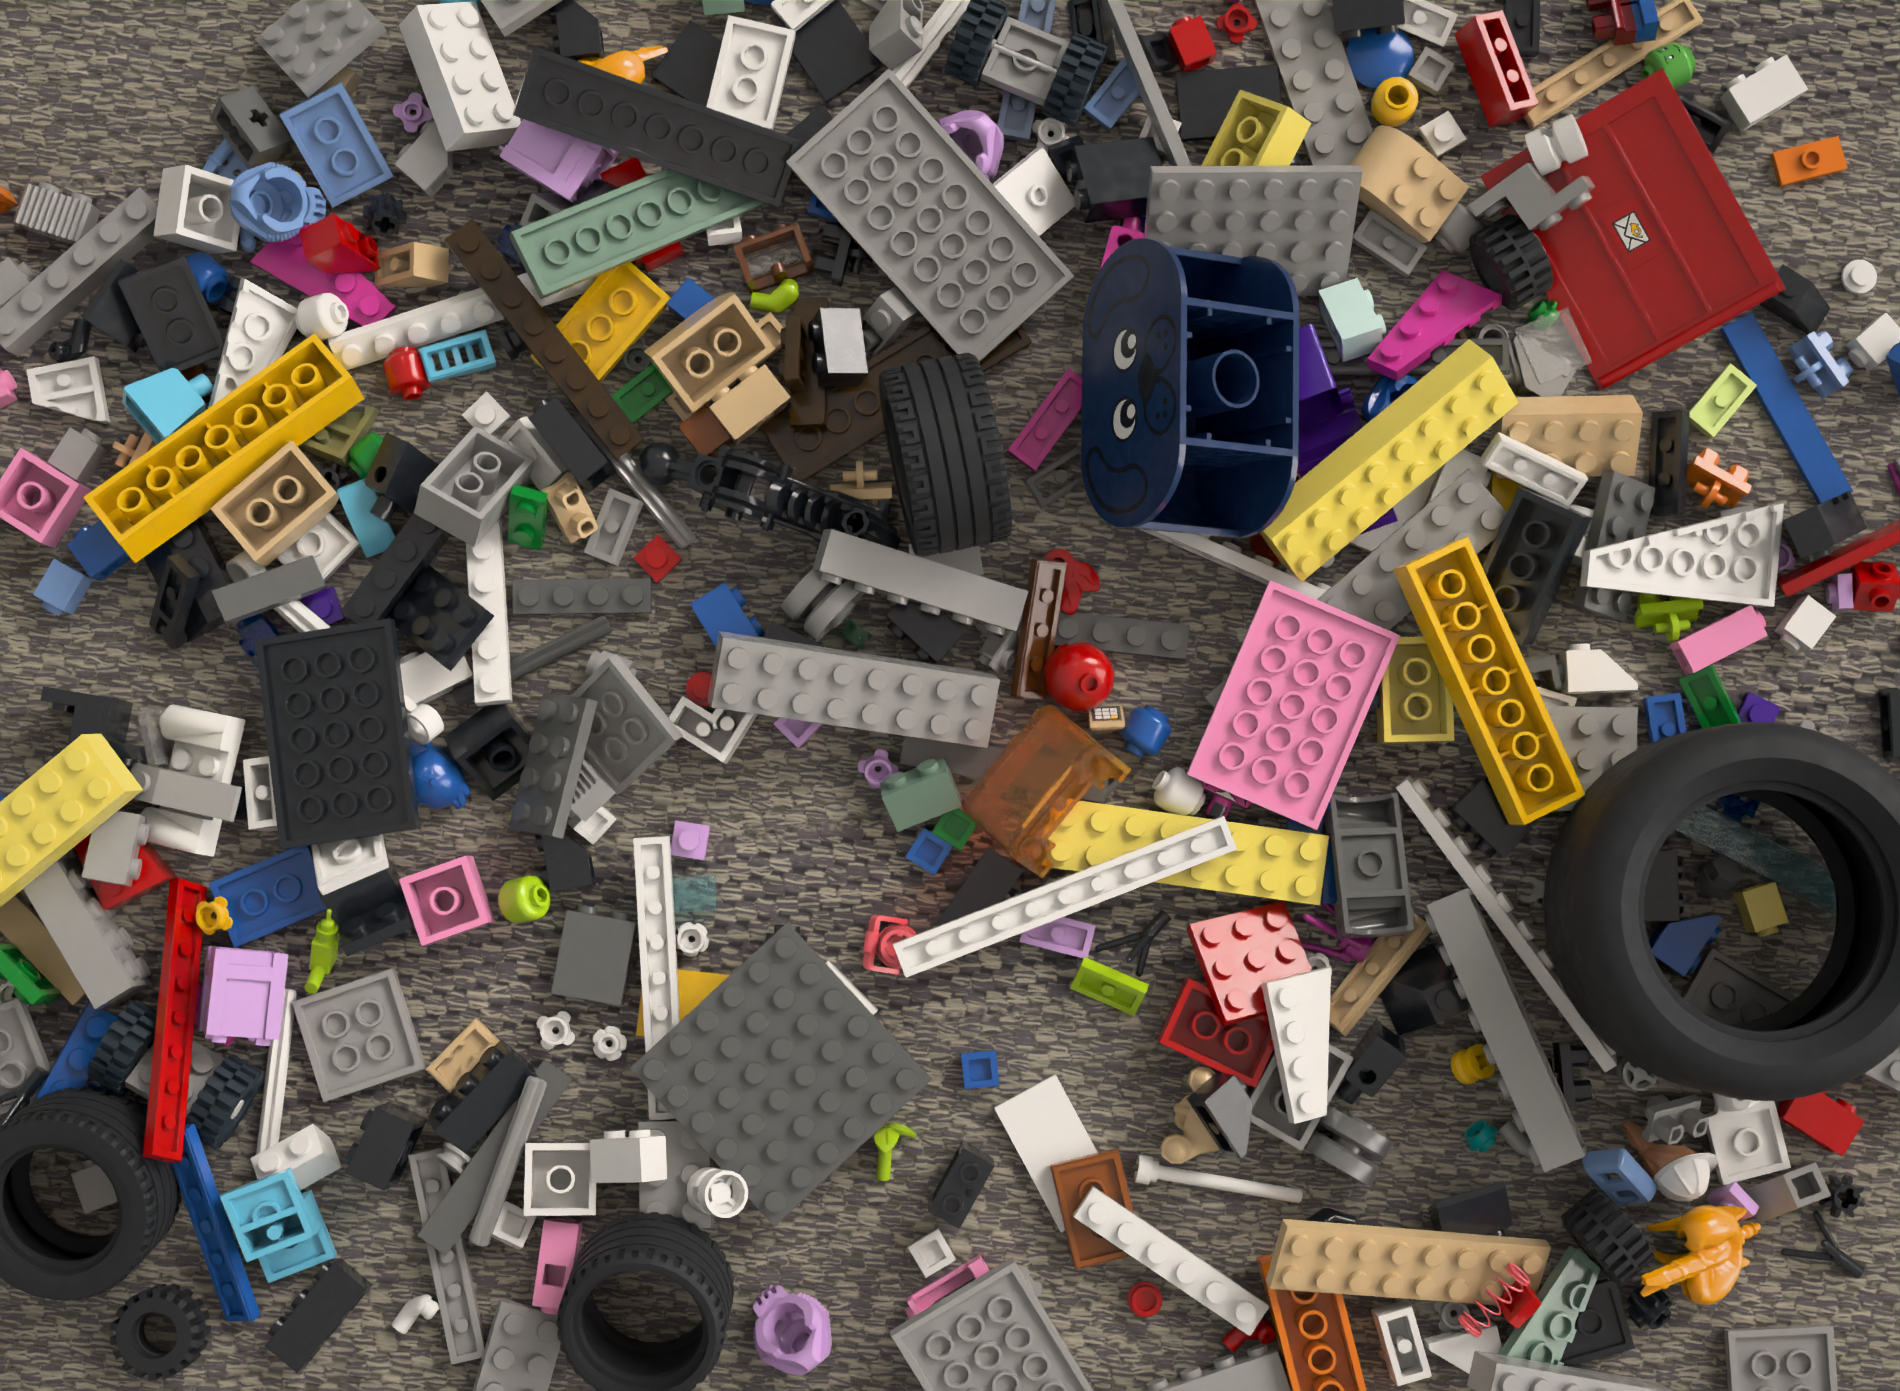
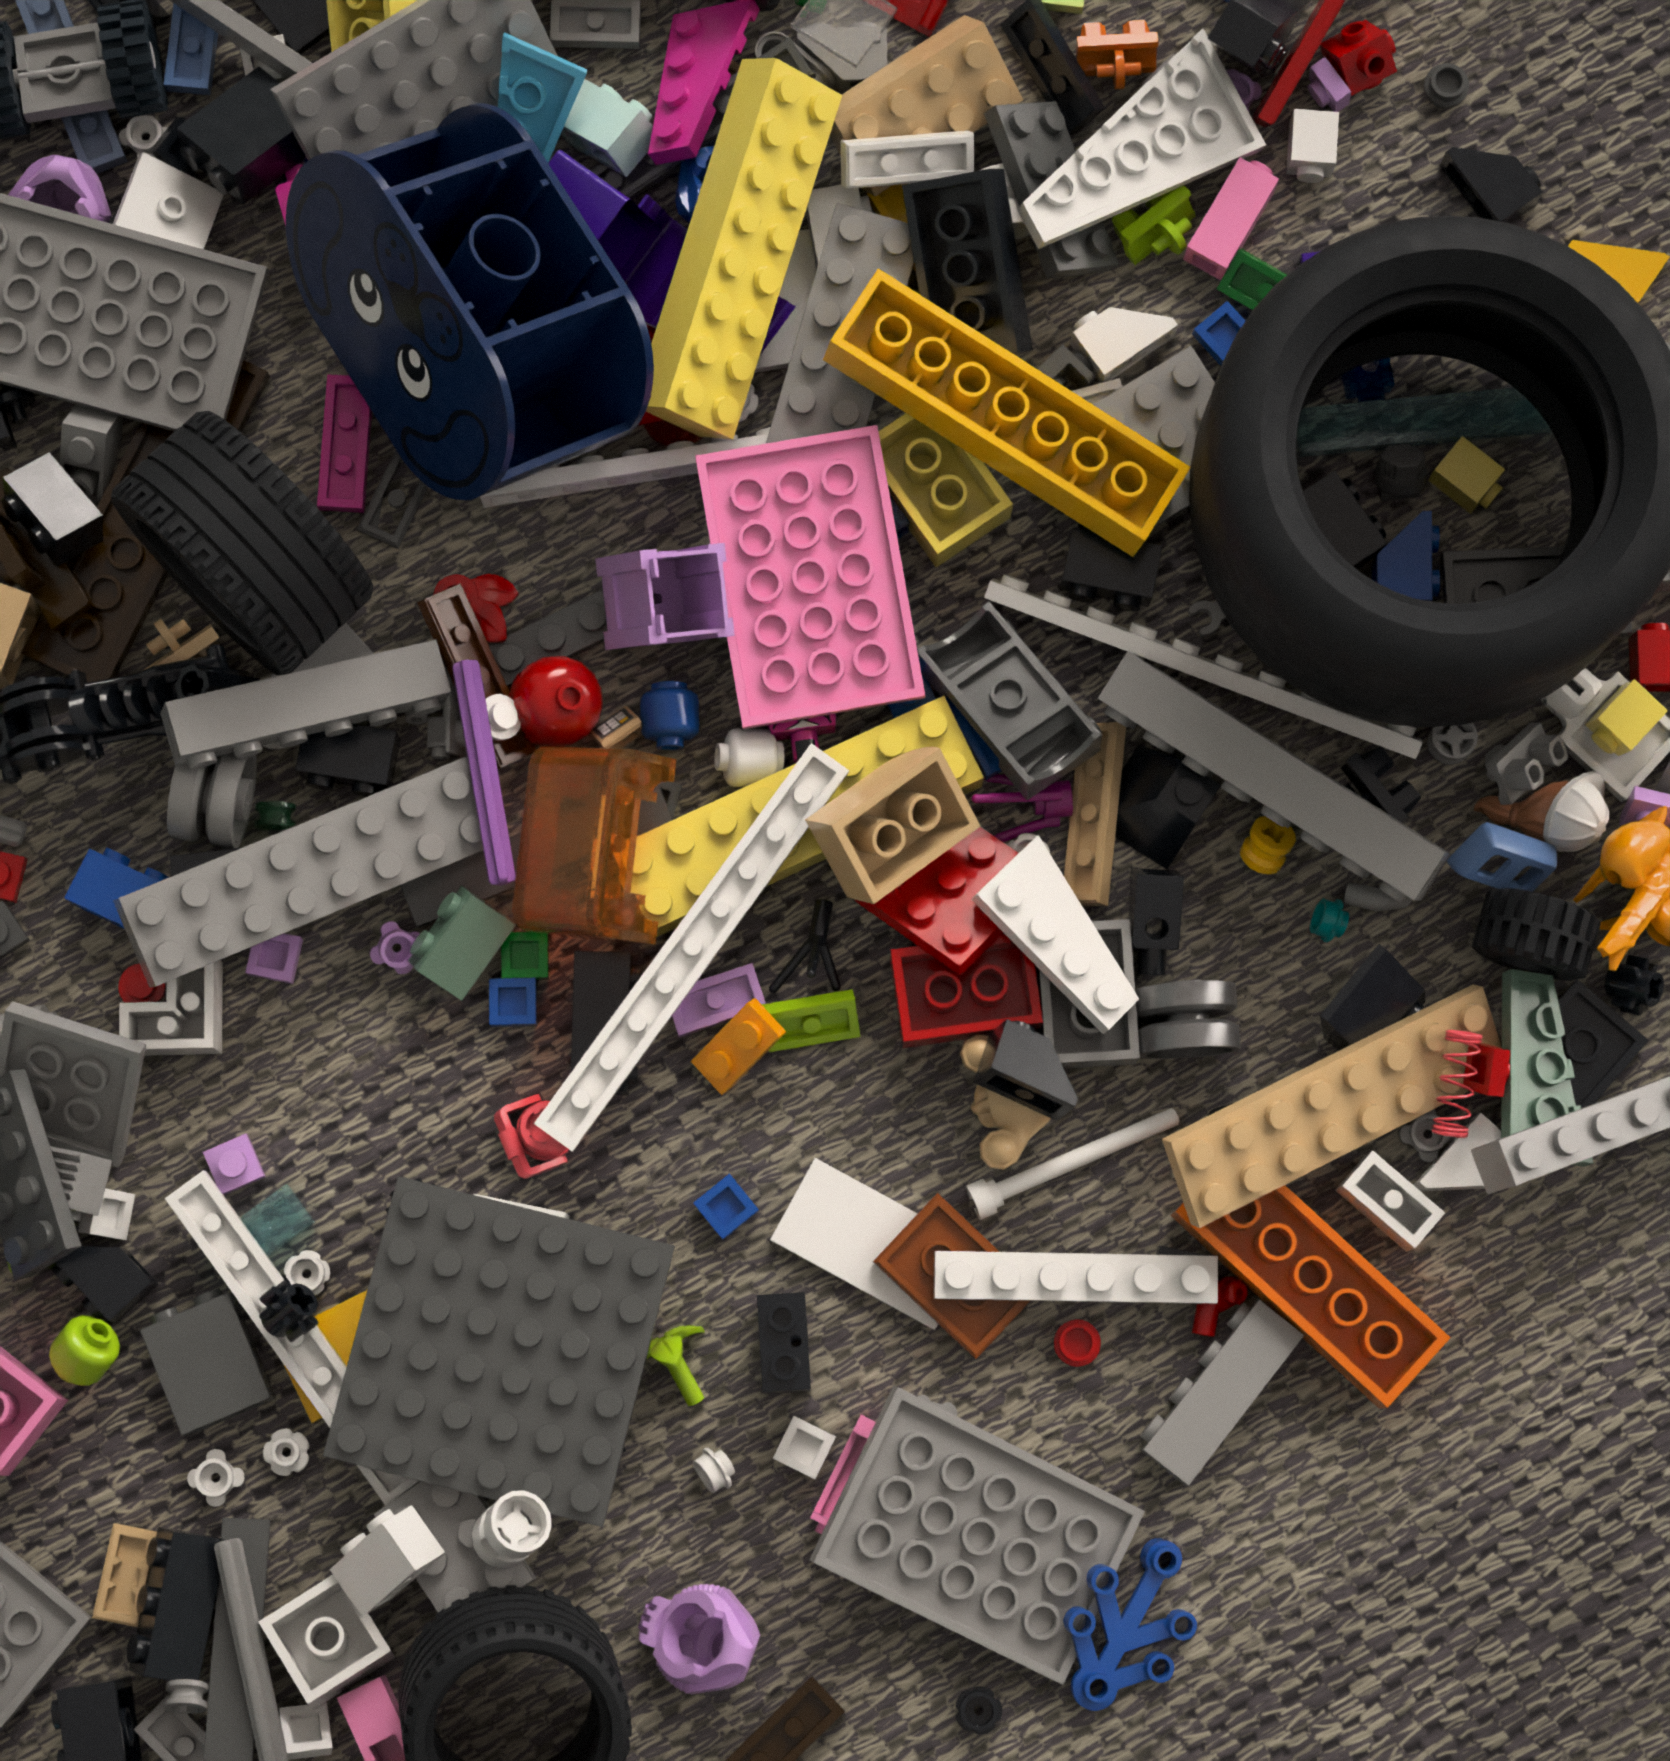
camera: 30 degrees left, 5 degrees down
(665, 962) = (288, 1310): none -> black gear
(867, 1229) = (714, 1469): none -> white plate
(1004, 698) = (484, 772): none -> medium lavender axle
(1035, 665) = (502, 717): none -> white plate
(1053, 974) = (738, 1046): none -> light orange plate
(1191, 658) = (686, 592): none -> lavender container
(1242, 902) = (893, 823): none -> tan brick
(1322, 271) = (538, 90): none -> medium azure wing
(1758, 1136) = (1625, 718): none -> light yellow brick

